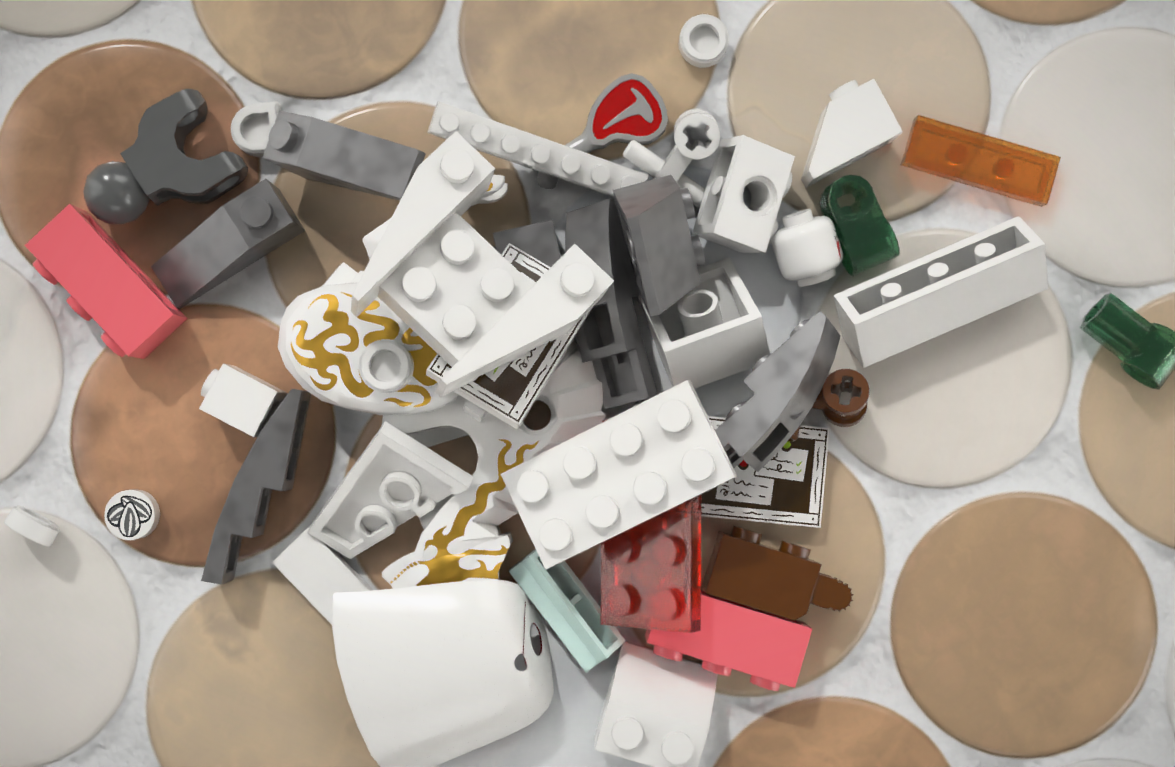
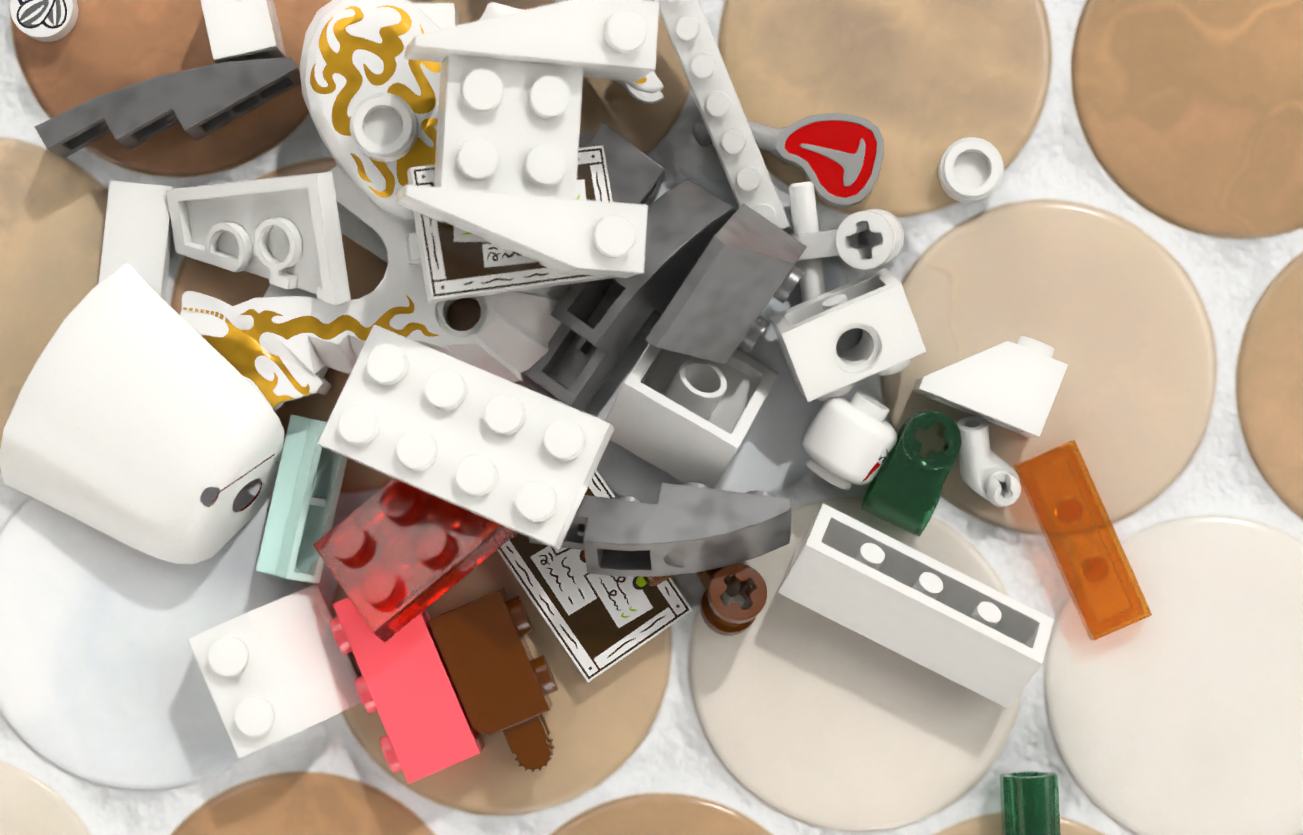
camera: 55 degrees right, 0 degrees up
(890, 183) = (983, 468): none -> white arm

